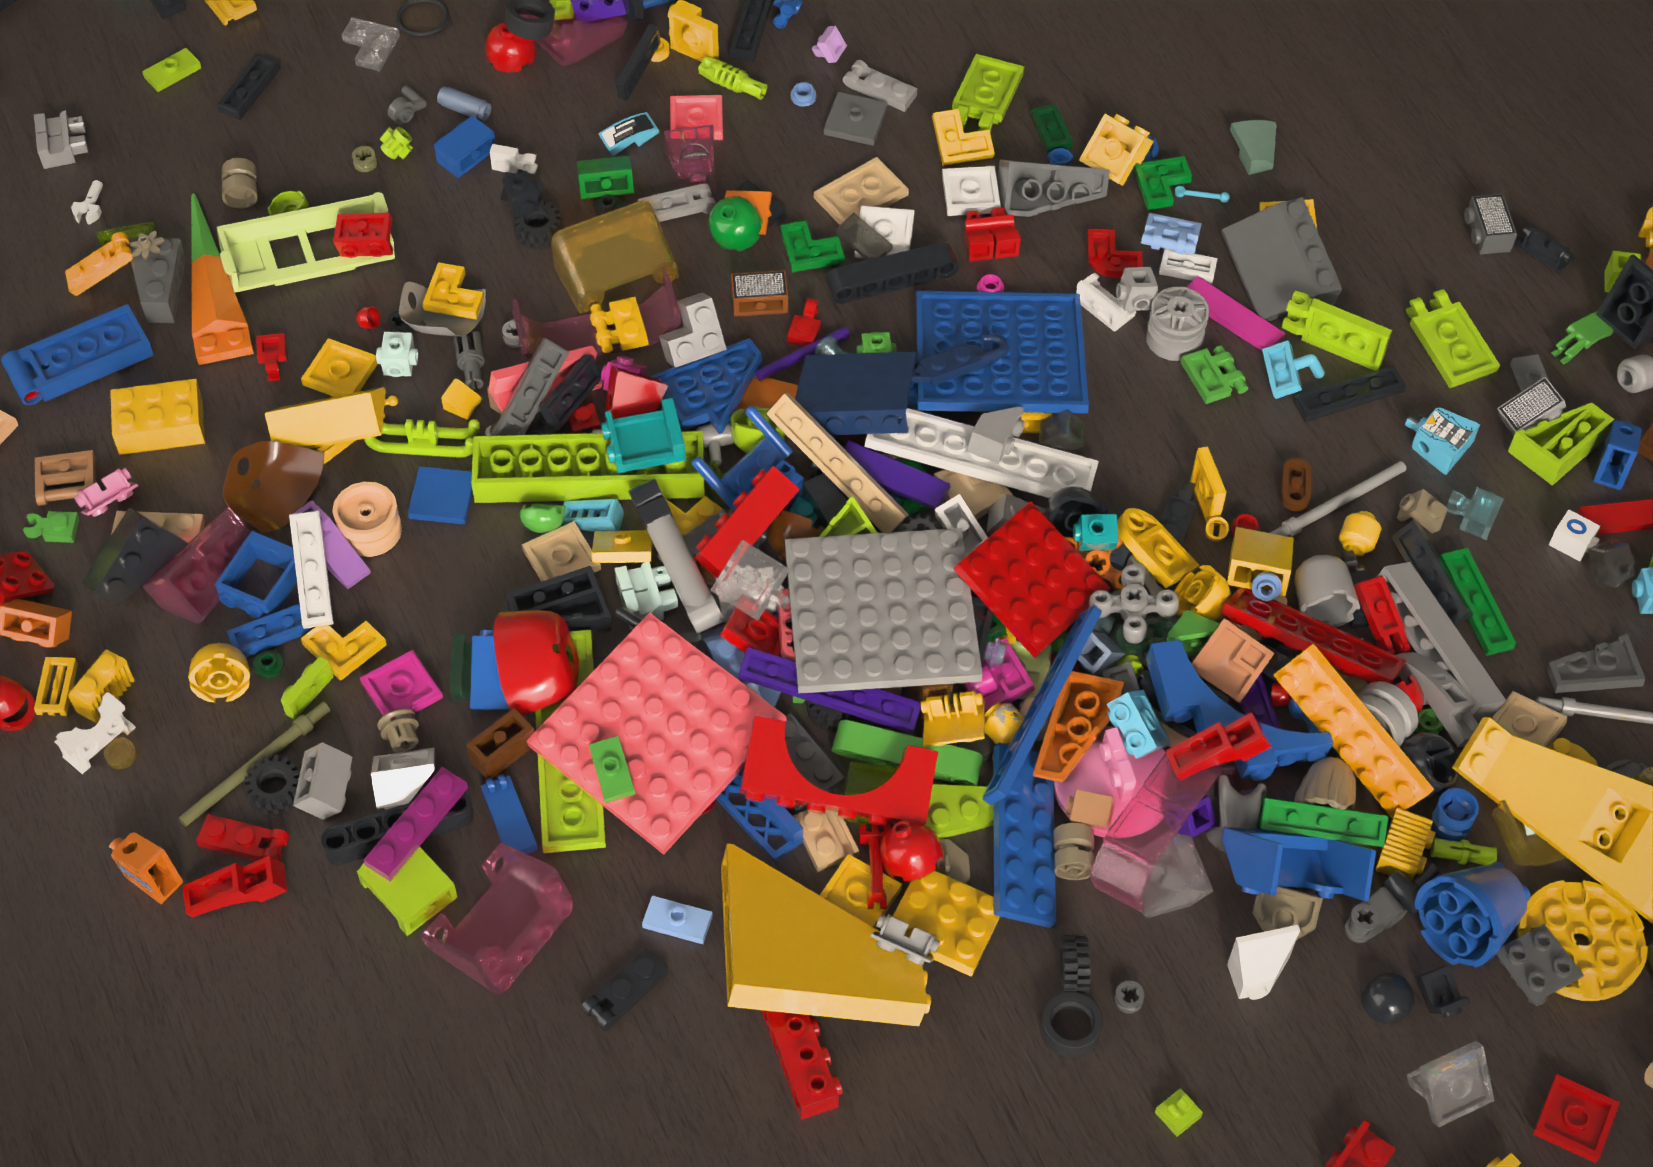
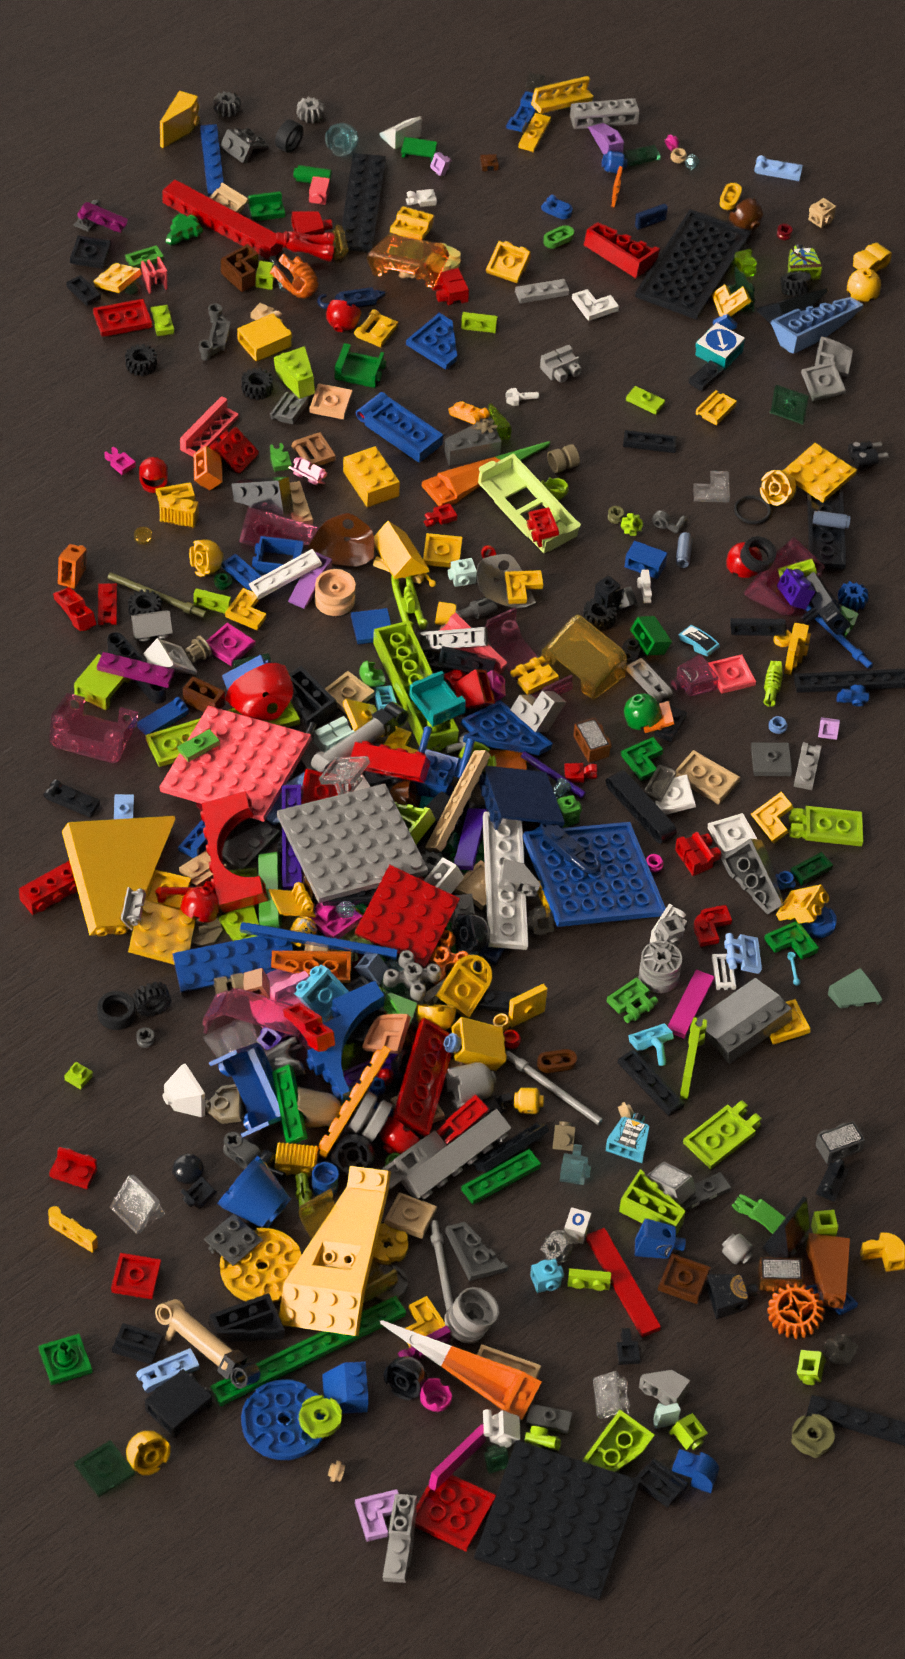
camera: 70 degrees right, 5 degrees down
(81, 745) = (156, 520): white piece -> none
(1096, 532) = (455, 942): teal brick -> none
(1397, 431) = (626, 1110): none -> tan plate

